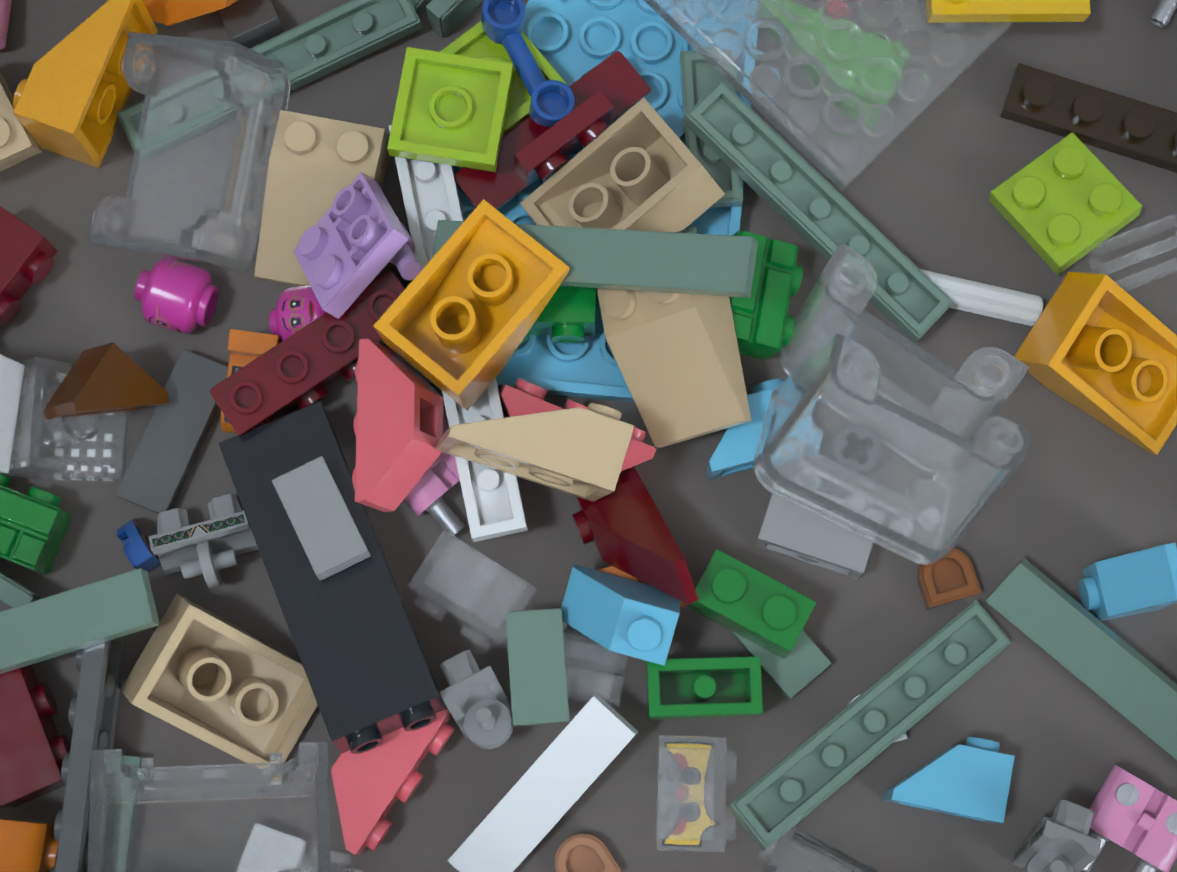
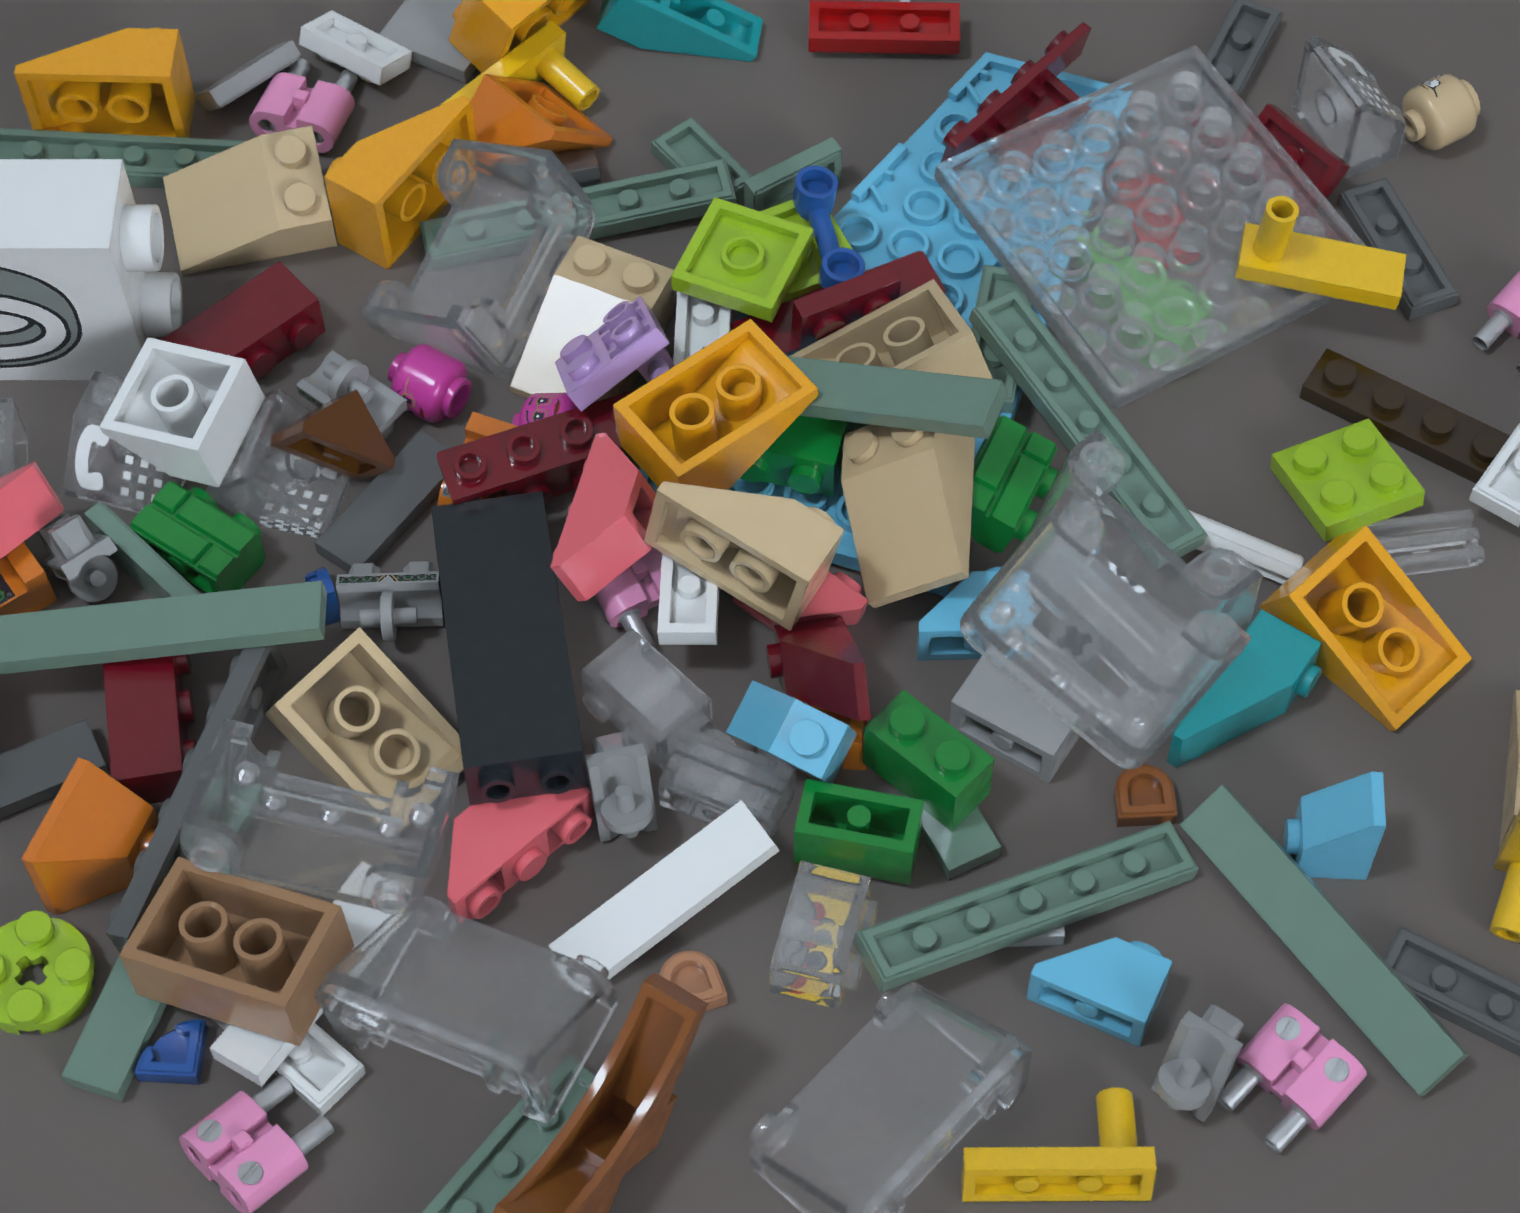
camera: 15 degrees right, 20 degrees down
(94, 323) = (340, 376): none -> light grey hips
(321, 518) = (512, 579): light grey tile -> none
(537, 667) = (691, 765): sand green tile -> none
(1052, 423) = (1252, 690): none -> teal slope

